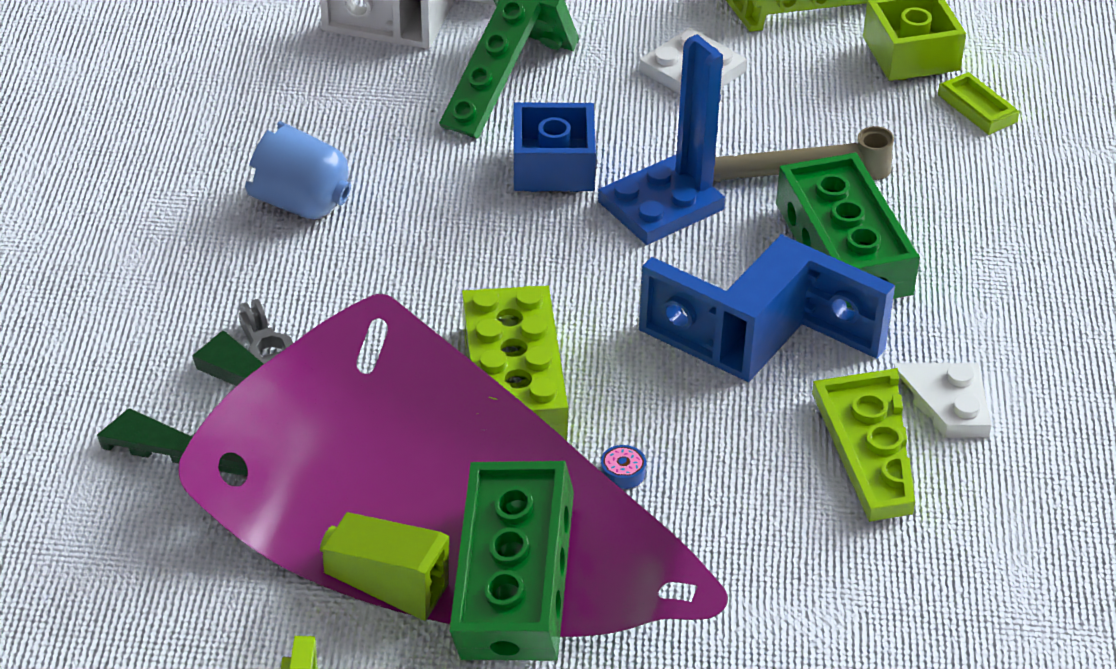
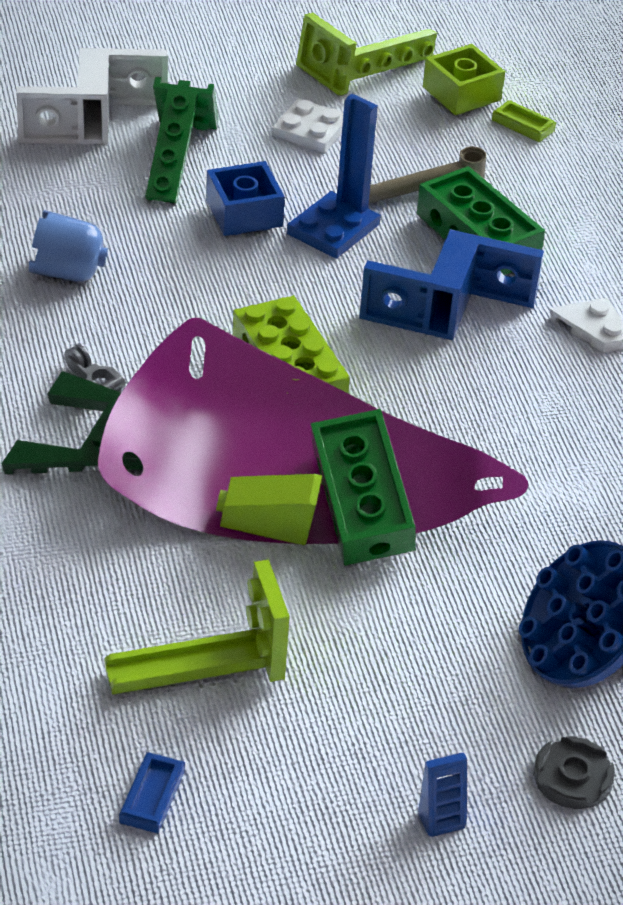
camera: 20 degrees left, 0 degrees up
(624, 466) = (398, 408): tile -> none
(870, 438) = (553, 357): lime wing -> none

